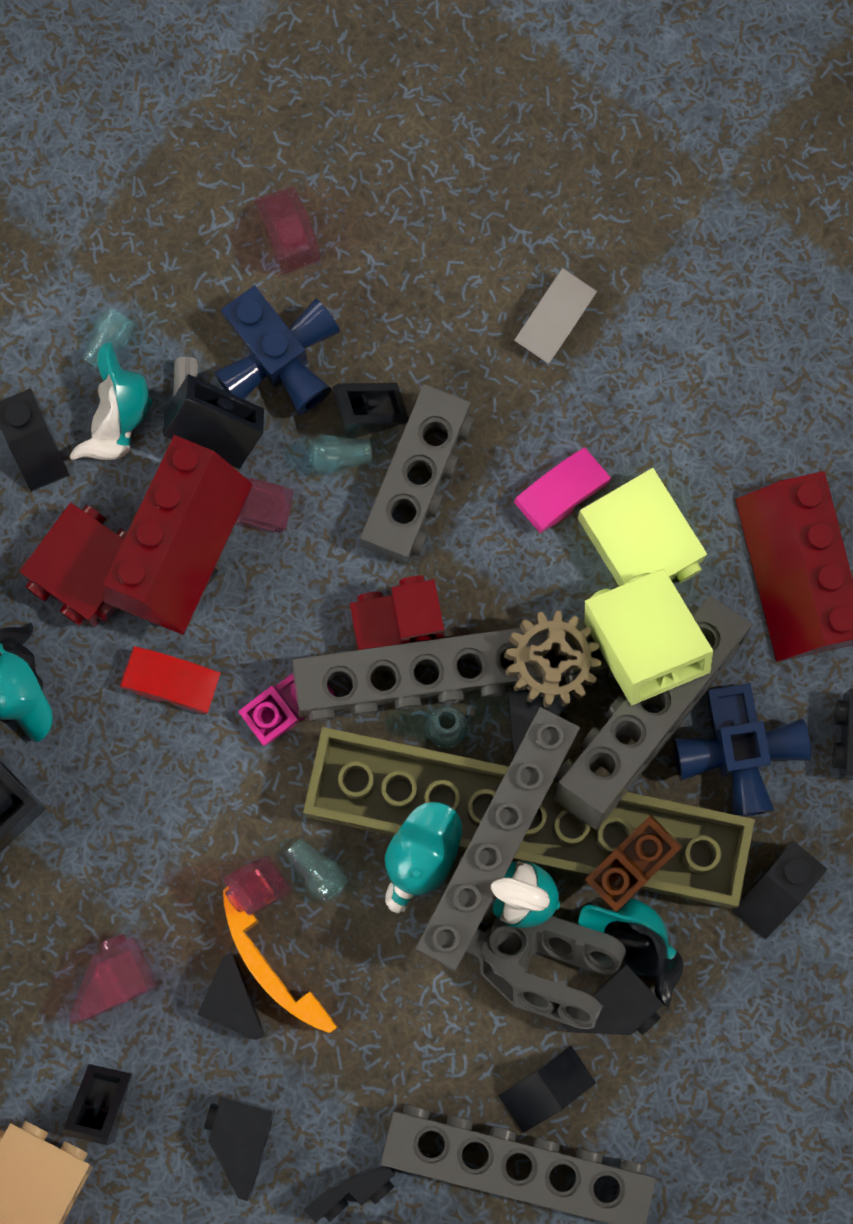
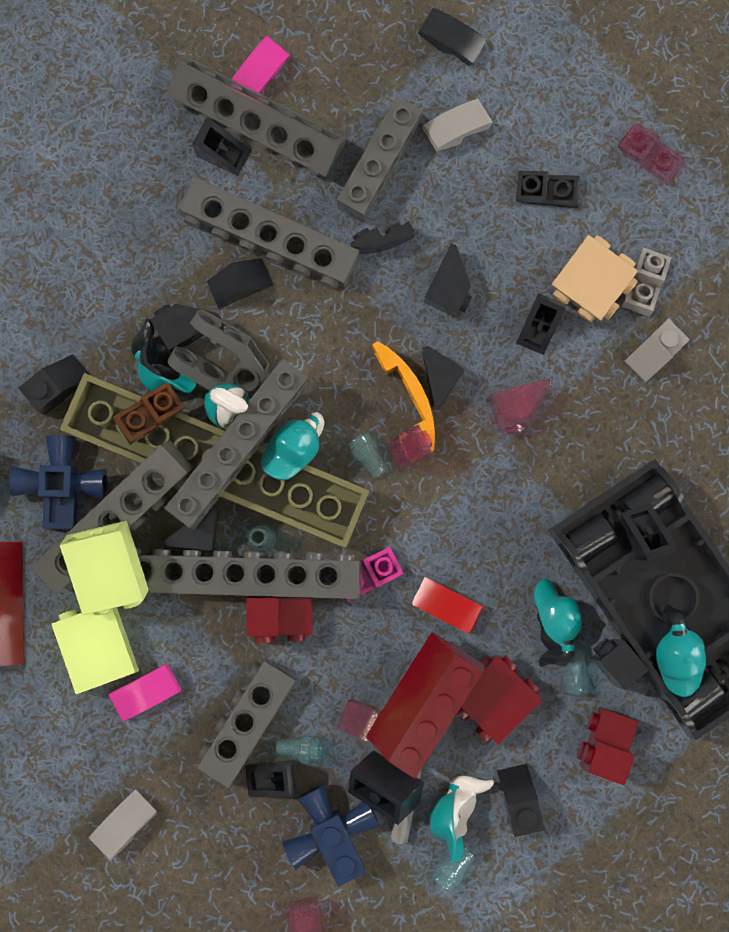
camera: 170 degrees left, 5 degrees up
(571, 662) = (170, 576): dark tan gear -> none

